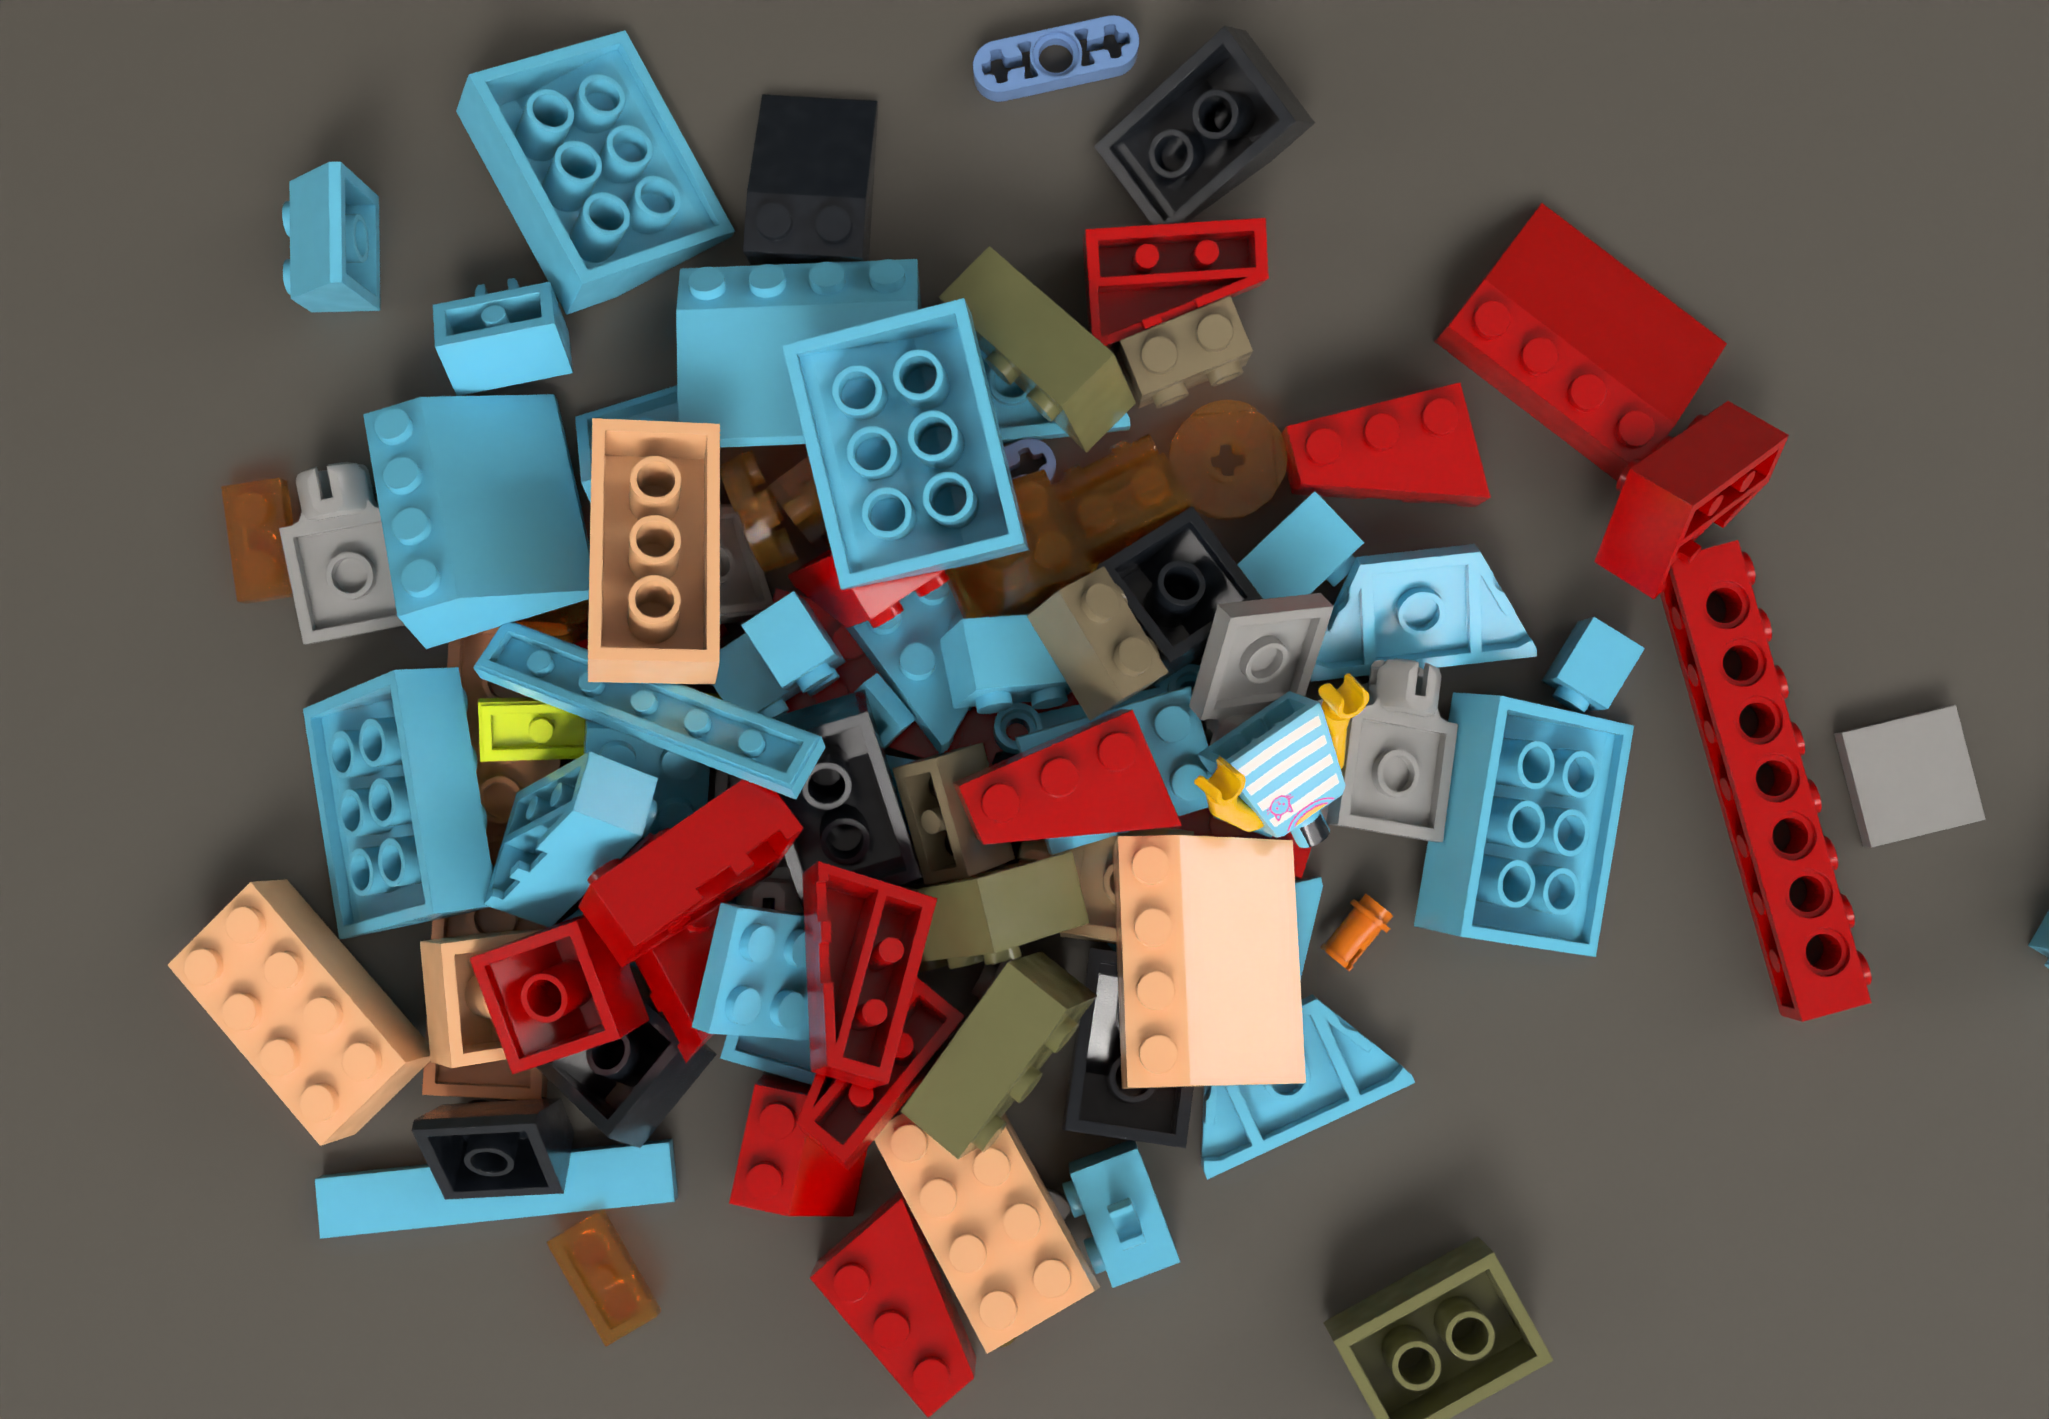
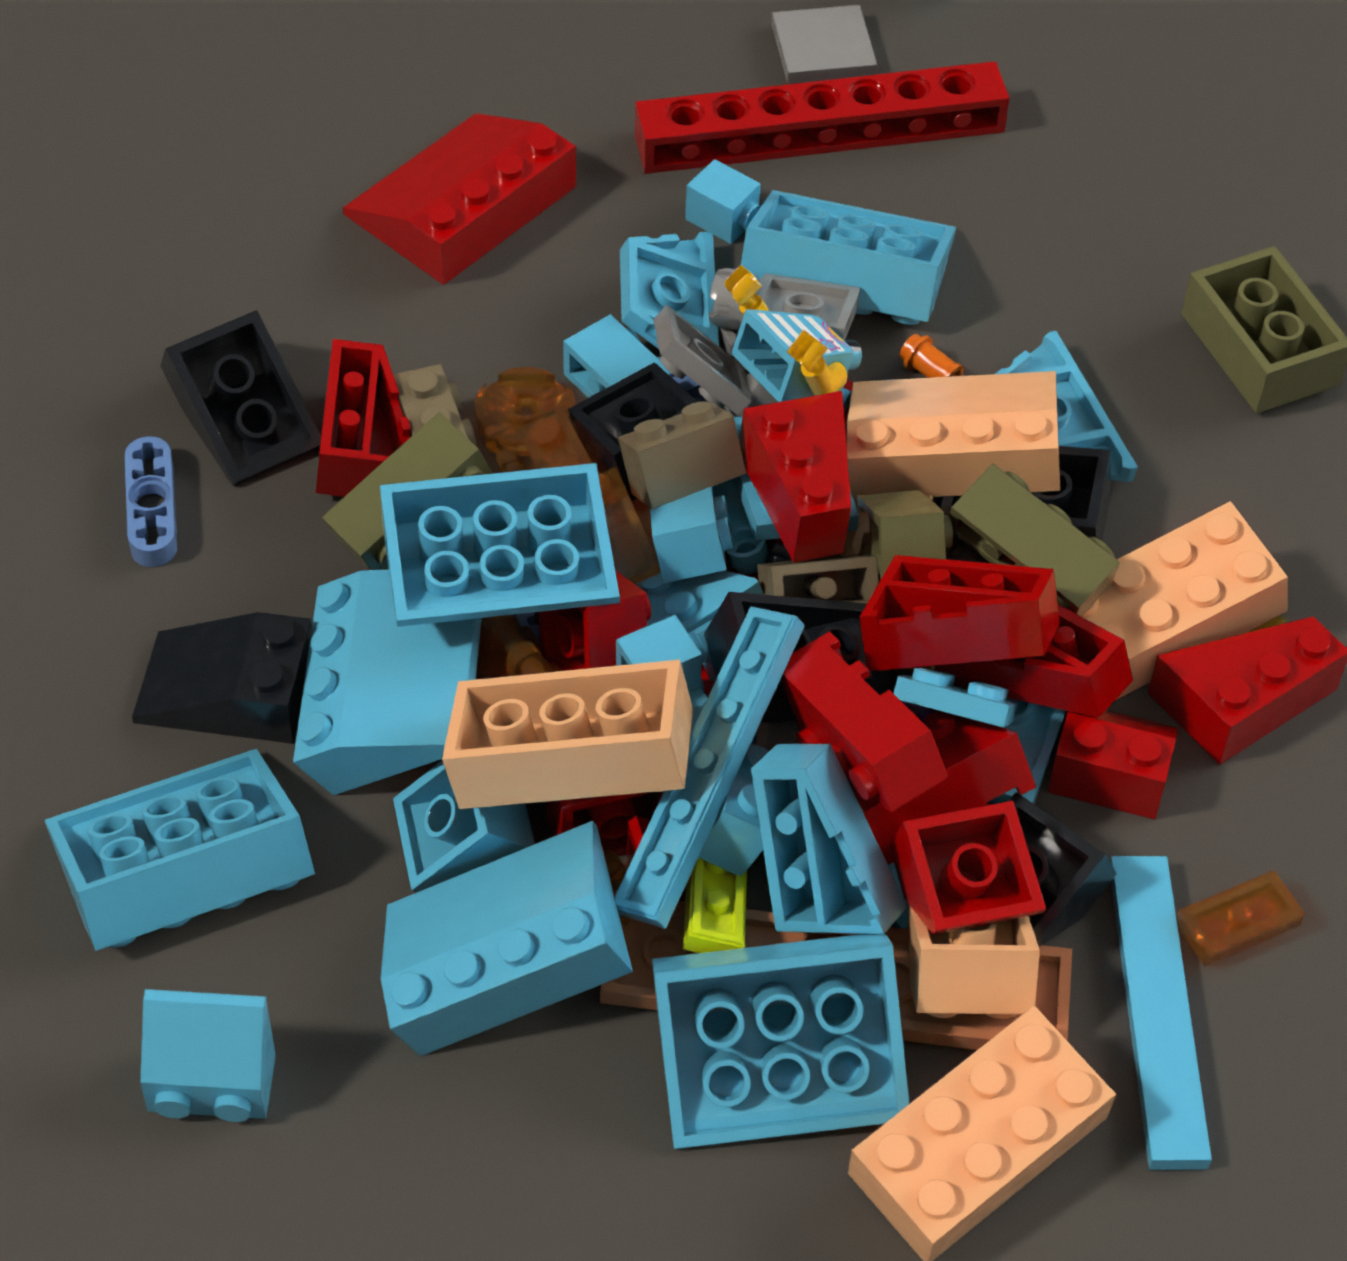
camera: 90 degrees left, 35 degrees down
(253, 522) = (497, 1172): clear orange plate -> none
(339, 556) = (527, 1080): light grey plate -> none
(497, 1147) = (1116, 966): black slope -> none
(502, 338) = (329, 918): medium azure brick -> none
(1121, 1212) = (1151, 513): medium azure brick -> none
(1391, 450) = (536, 296): red wedge -> none
(1683, 489) = (601, 120): red wedge -> none

